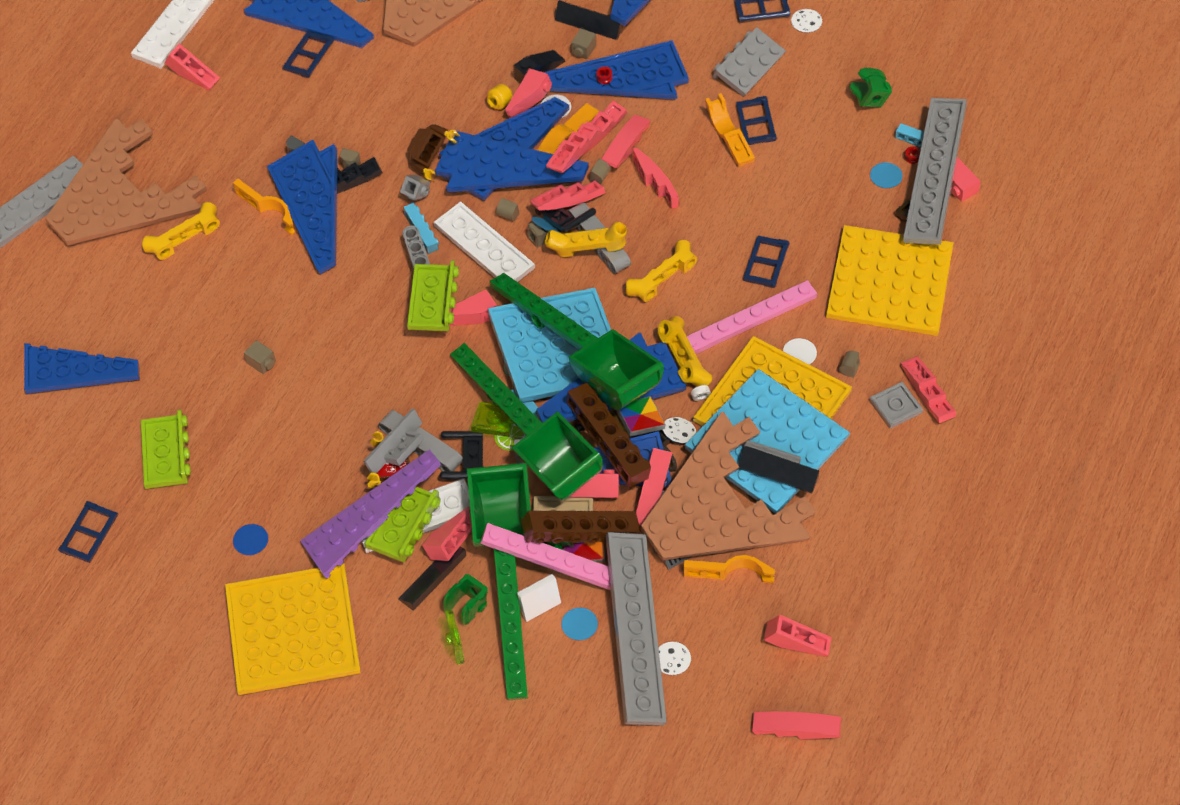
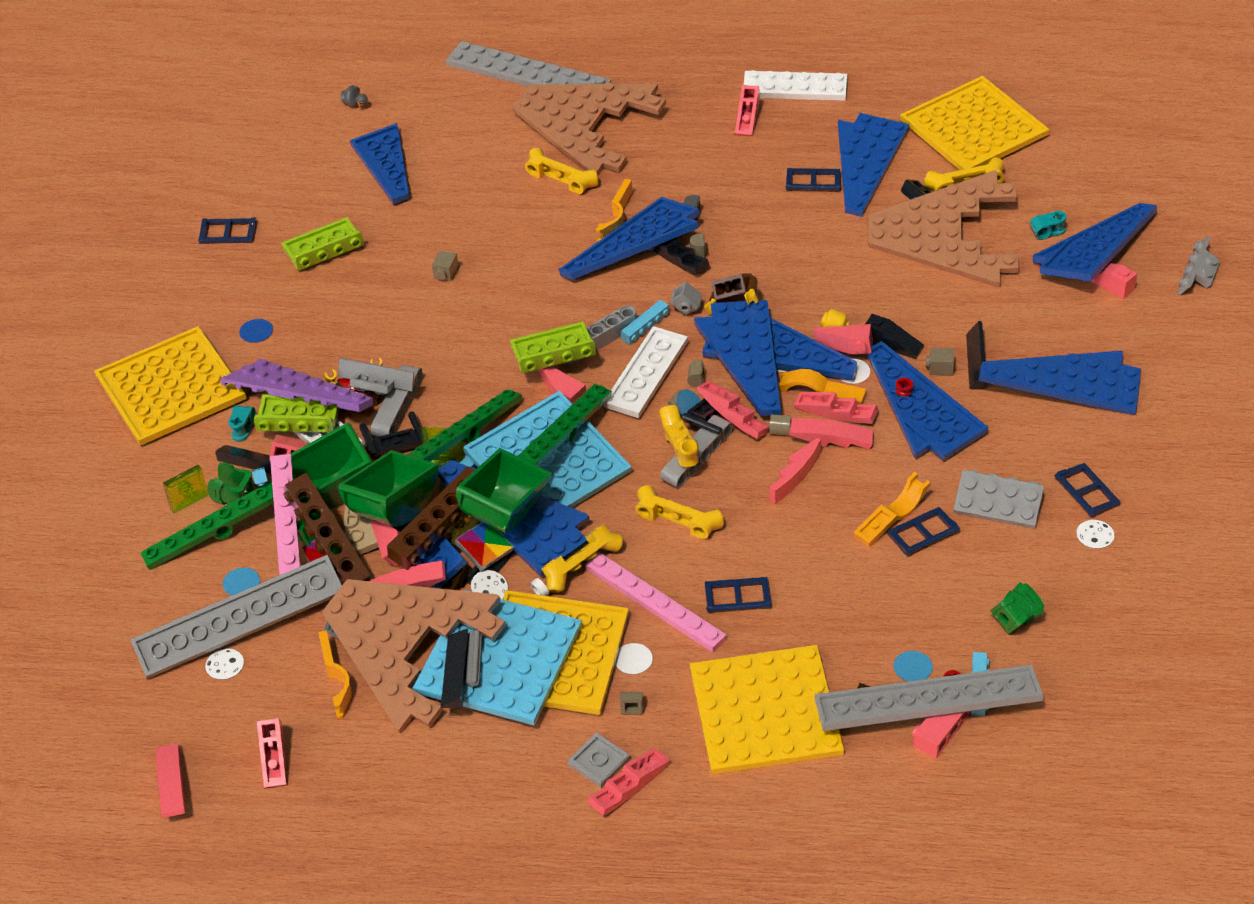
camera: 70 degrees right, 10 degrees down
(378, 576) = (241, 422): none -> teal piece
(475, 567) = (259, 476): none -> medium azure piece
(539, 597) = (246, 534): white tile -> none
(572, 149) = (786, 389): coral slope -> none

